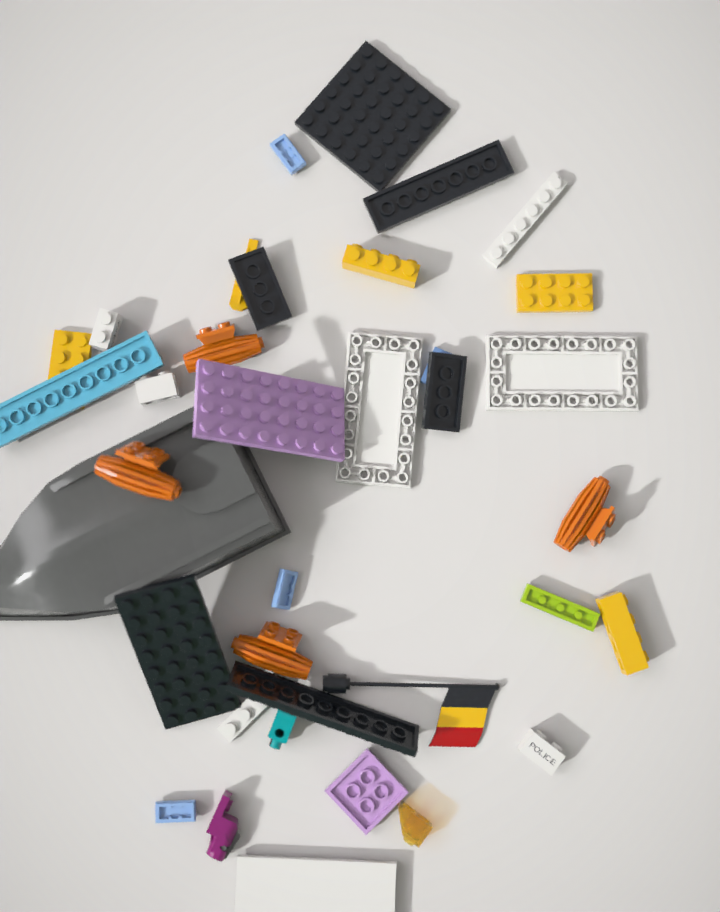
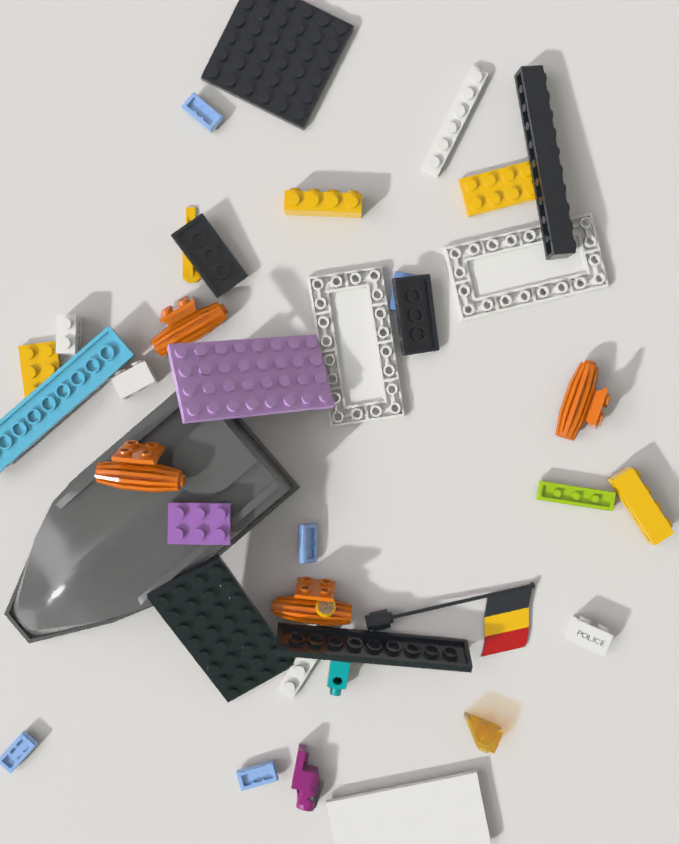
camera: 10 degrees left, 5 degrees up
(183, 538) = (199, 523): none -> medium lavender plate
(285, 657) = (325, 609): none -> tile
(366, 791) = (432, 712): lavender plate -> none
(438, 186) = (360, 108): black plate -> none
(602, 279) = (545, 162): none -> black brick

